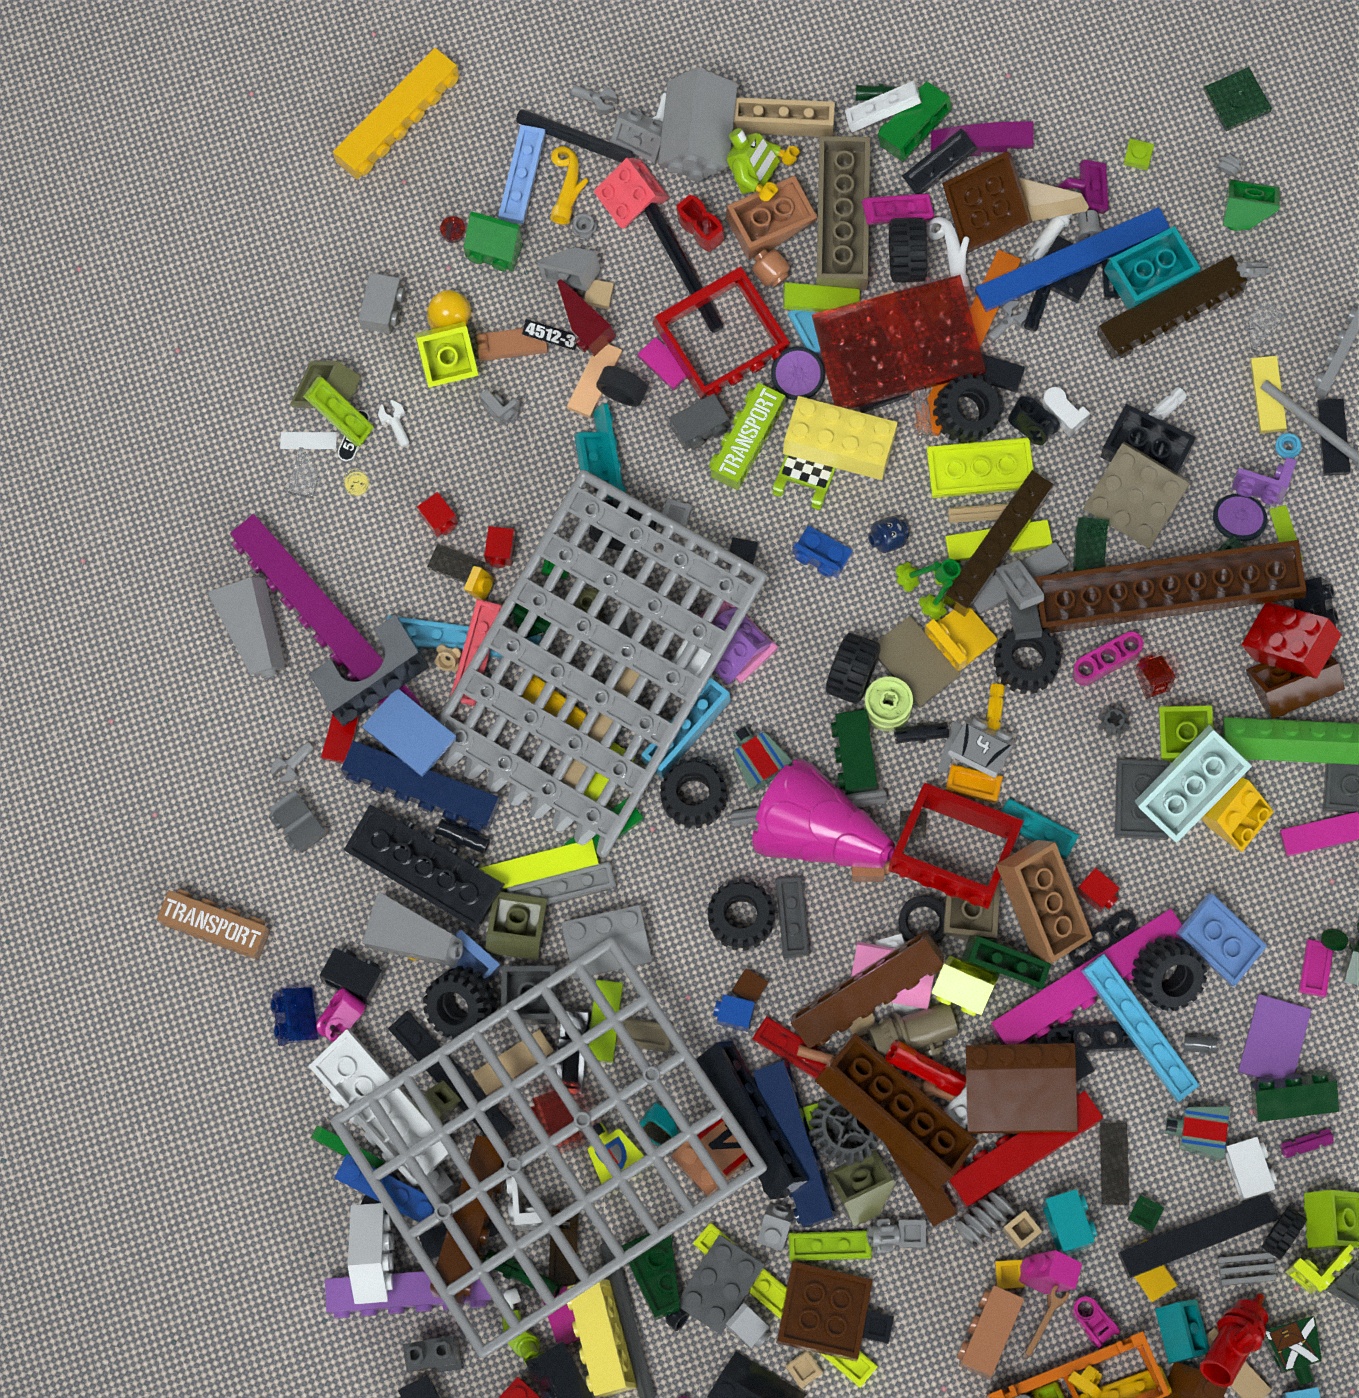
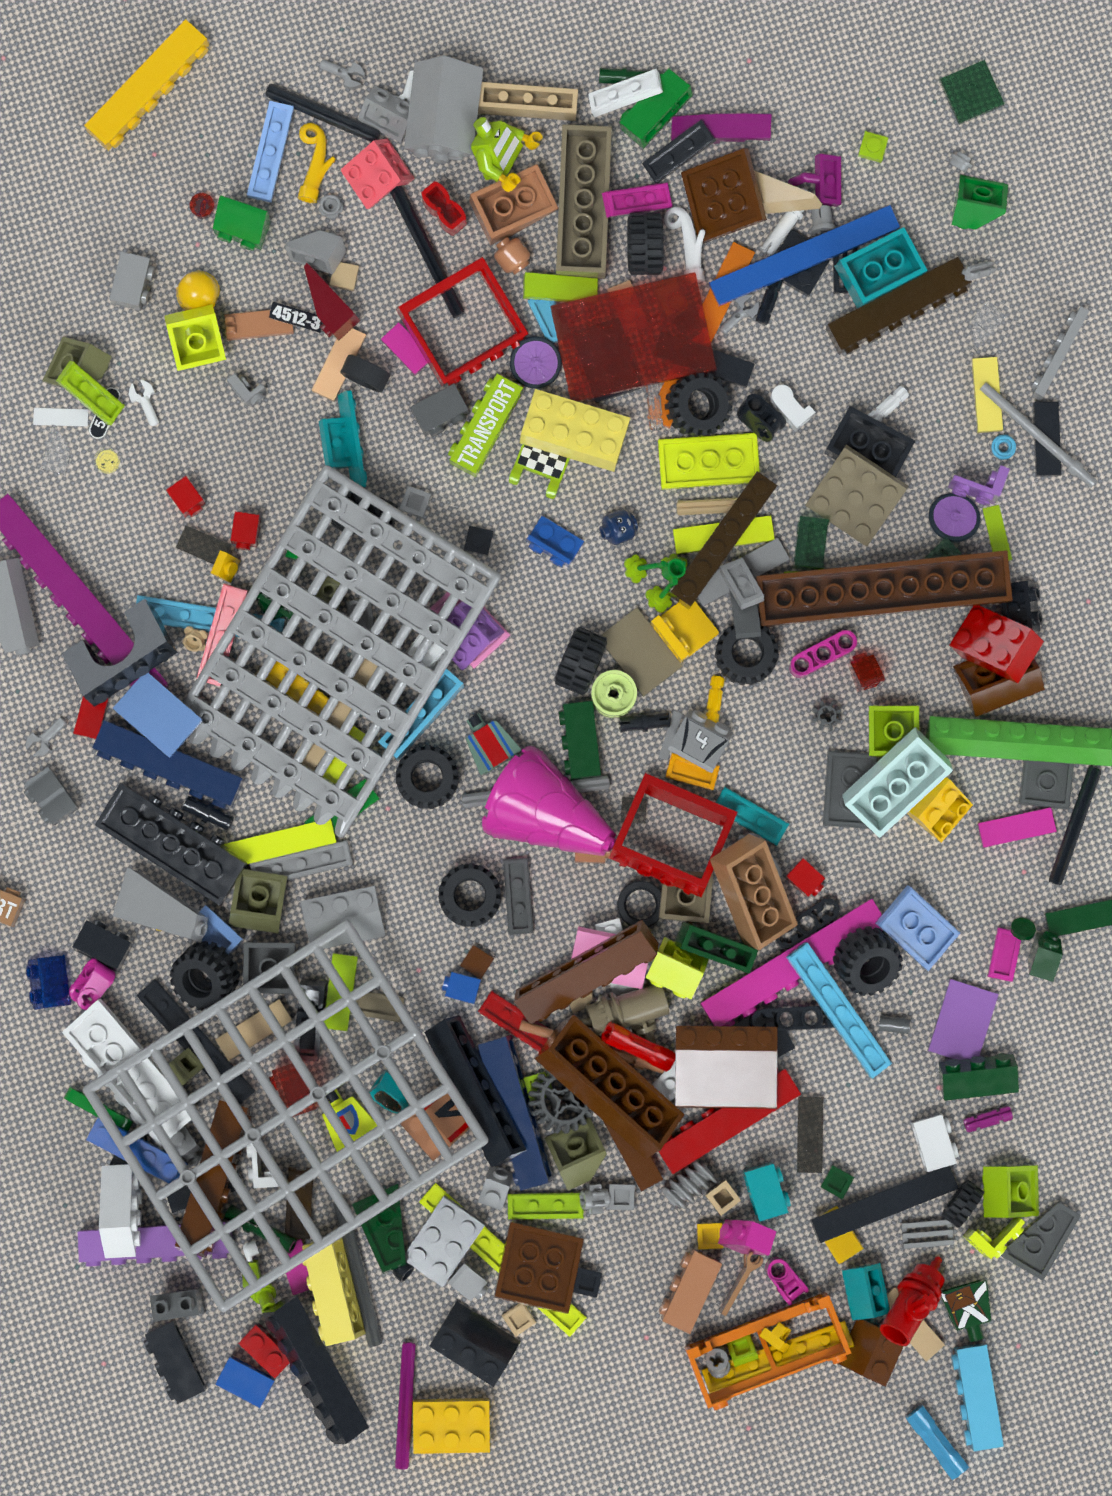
camera: 10 degrees left, 10 degrees up
(1201, 1131) = (891, 1106): torso -> none

